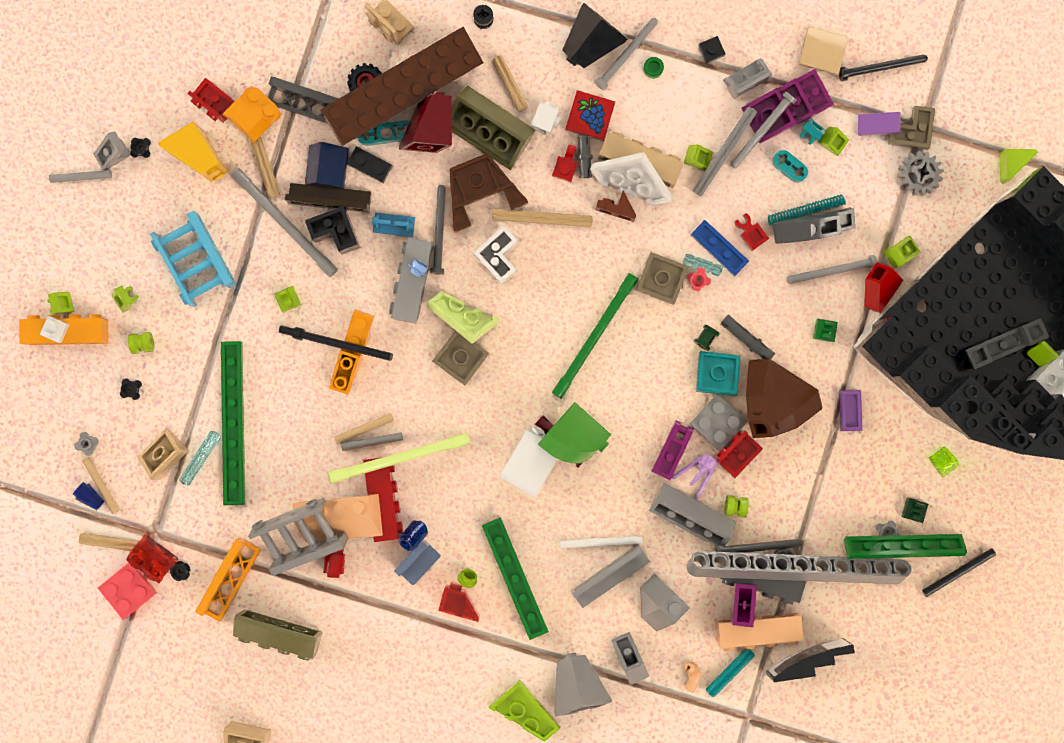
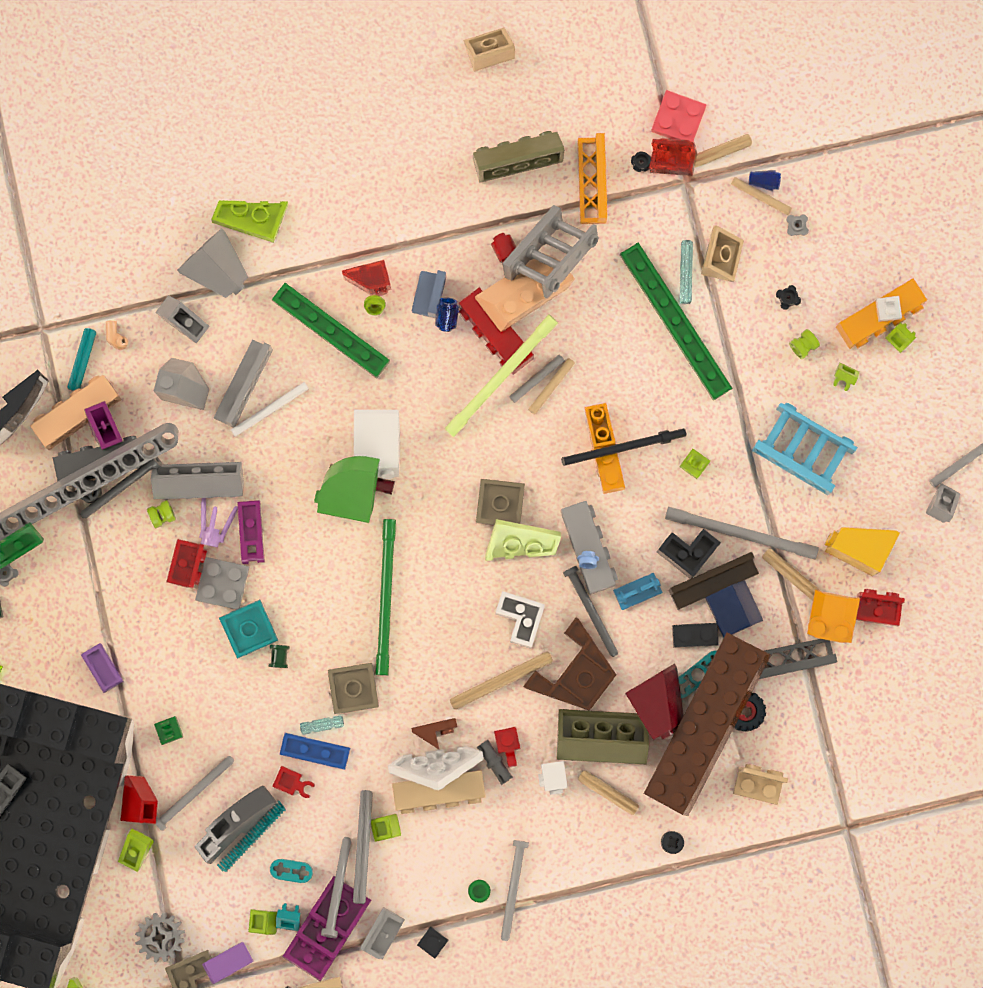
camera: 150 degrees right, 5 degrees down
(136, 143) = (920, 518): black plate -> none
(590, 115) = (513, 806): red tile -> none
(591, 38) = (555, 882): black slope -> none
(697, 285) = (313, 704): coral plate -> none
(755, 344) = (242, 679): dark grey pin -> none
(777, 399) = (178, 635): reddish brown brick -> none

